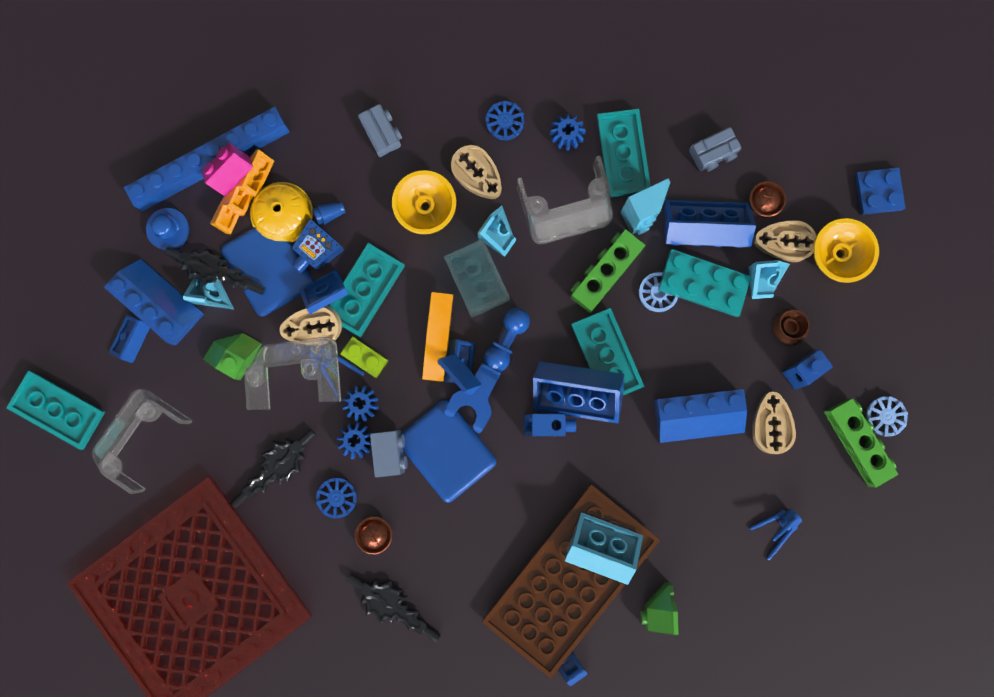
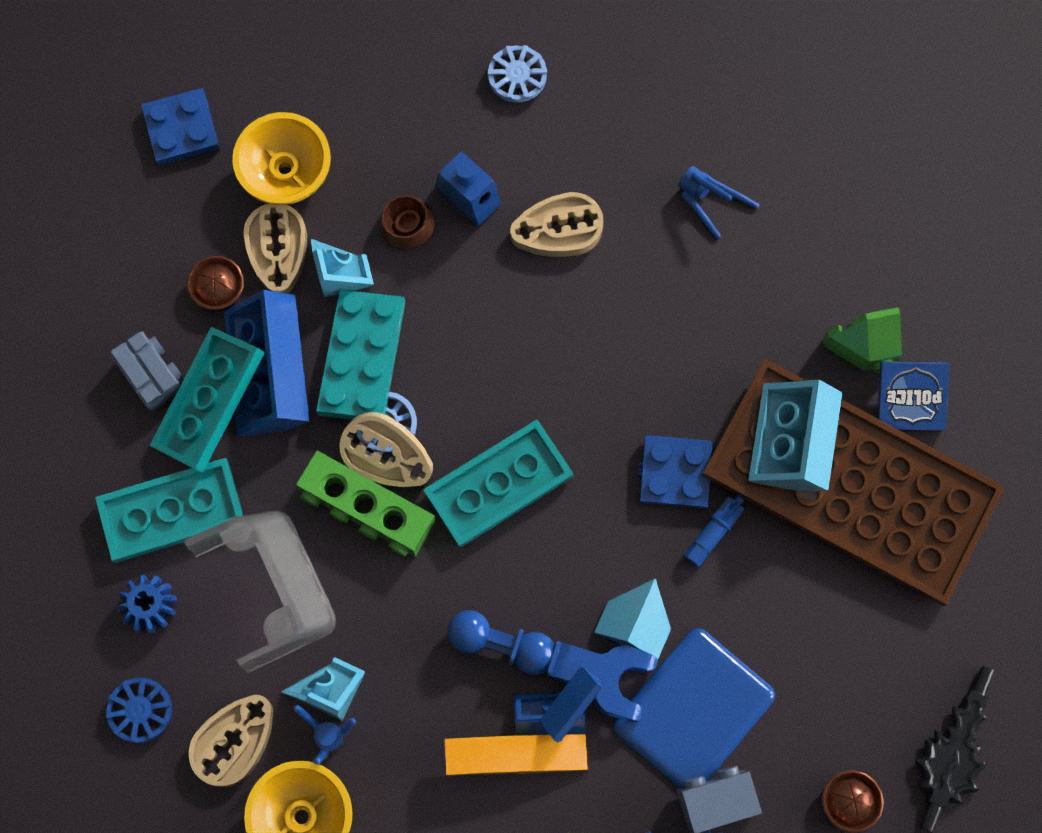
camera: 100 degrees left, 10 degrees down
(469, 226) = (327, 735): none -> blue plant
(476, 278) = (411, 706): clear light blue brick -> none
(506, 425) = (636, 619): none -> medium azure slope
(541, 425) = (625, 553): blue torso -> none
(554, 485) = (714, 531): none -> blue piece
(572, 670) = (984, 458): blue slope -> none
(578, 392) = (564, 515): blue slope -> none
(596, 467) = (675, 472): none -> blue plate
(620, 633) = (913, 395): none -> tile
(643, 207) = (262, 456): medium azure slope -> none
(649, 292) = (388, 433): none -> tan piece
(690, 182) = (207, 399): none -> teal plate
(701, 415) = (565, 331): blue slope -> none
(885, 467) = (592, 65): bright green brick -> none

